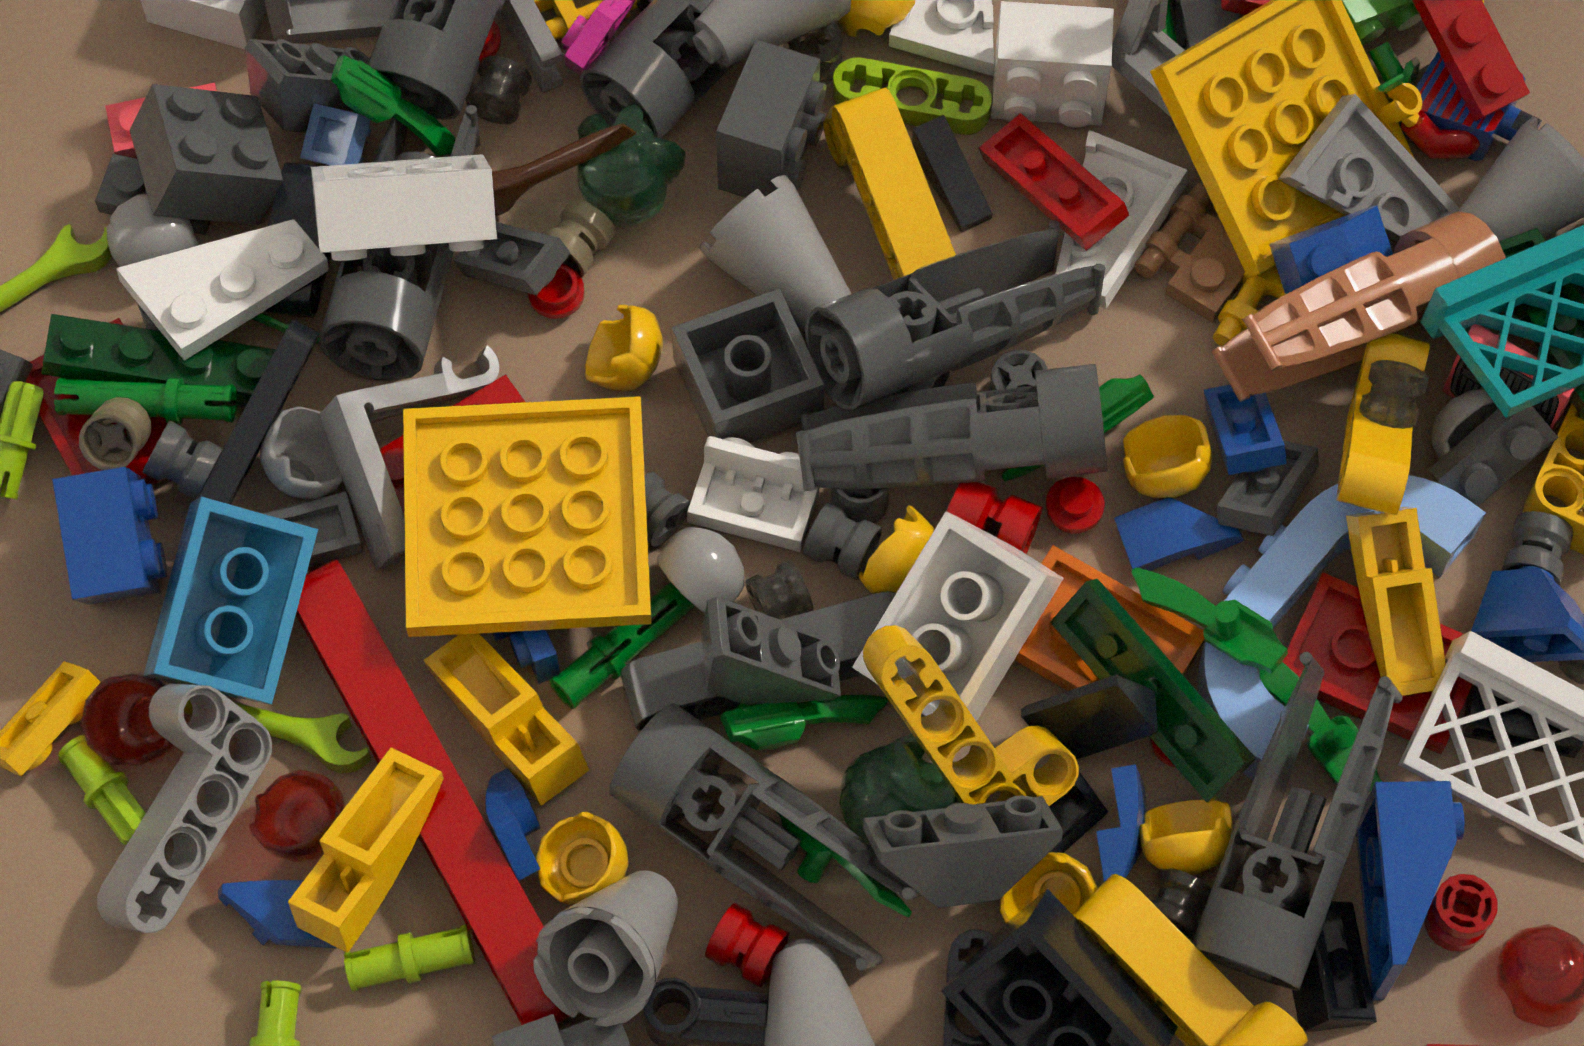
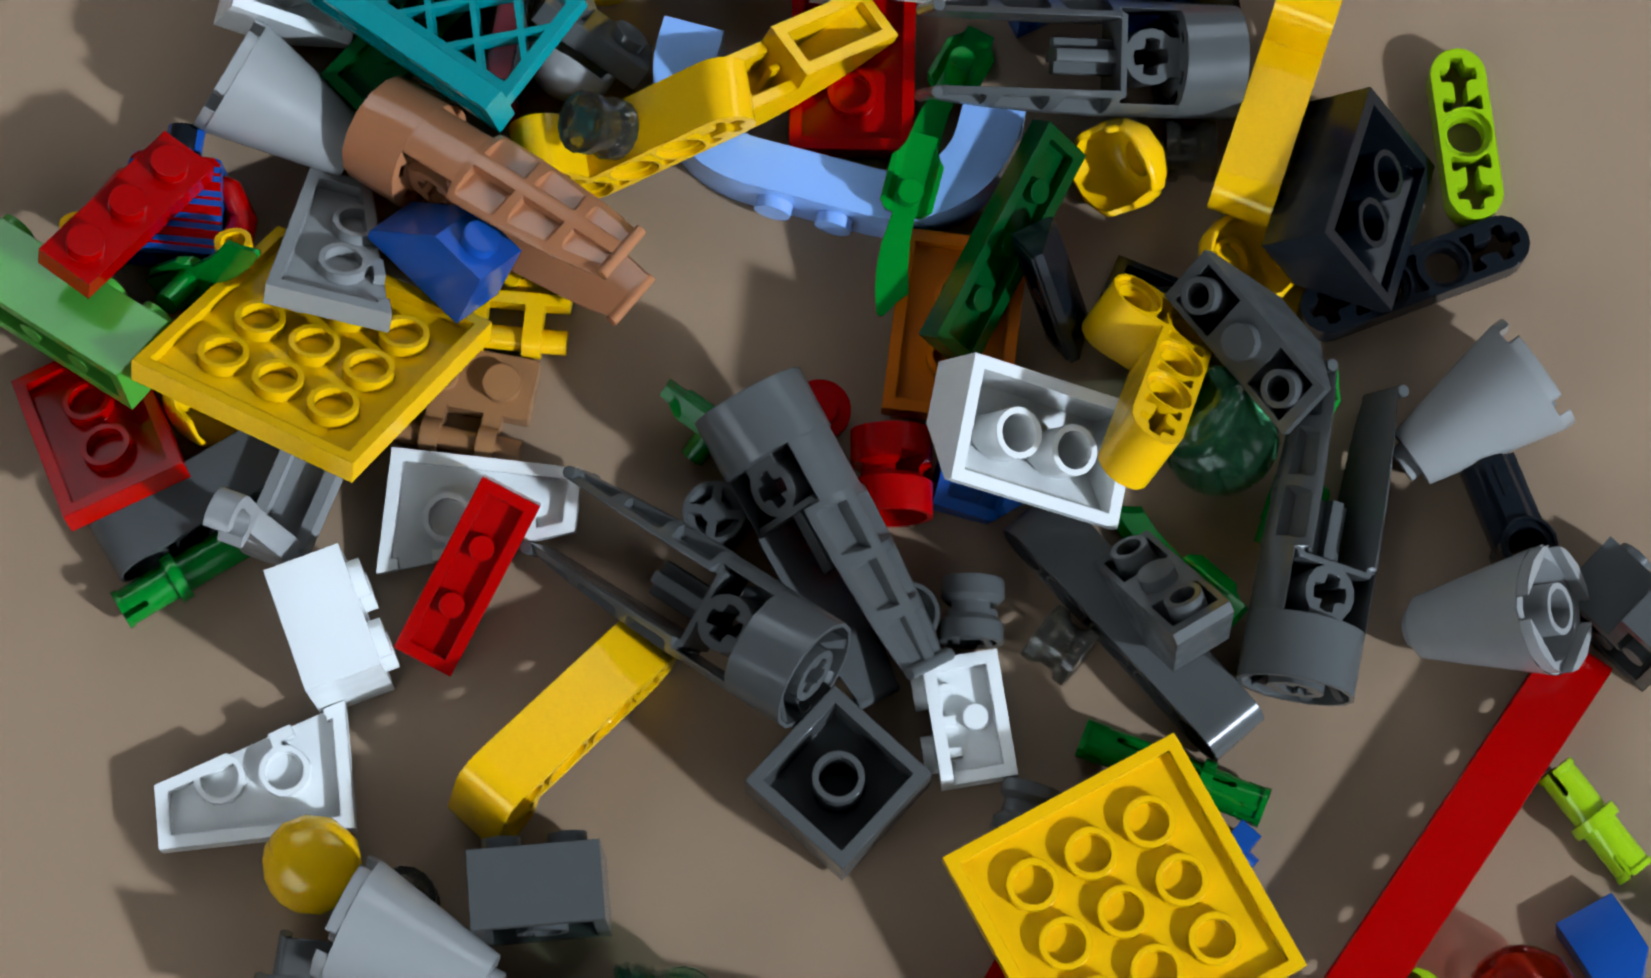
camera: 115 degrees left, 10 degrees up
(366, 850) = (1529, 897): yellow slope -> none
(507, 716) = (1318, 841): yellow slope -> none
(512, 821) = (1408, 801): blue slope -> none
(581, 857) = (1425, 701): yellow hair -> none
(624, 350) = (868, 928): yellow hair -> none
(702, 566) = (1075, 727): light grey hair -> none
(746, 944) = (1423, 516): red wheel -> none
(775, 246) = (687, 813): light grey cone -> none
(897, 554) = (965, 542): yellow hair -> none
(898, 76) = (385, 735): lime beam -> none
(950, 173) = (493, 693): black piece -> none
(1121, 845) = (1158, 221): blue slope -> none
(1167, 456) = (733, 337): yellow hair -> none
(1171, 531) = (808, 307): blue slope -> none
(1244, 430) = (682, 267): blue plate -> none
(1265, 497) = (721, 230): dark grey plate -> none

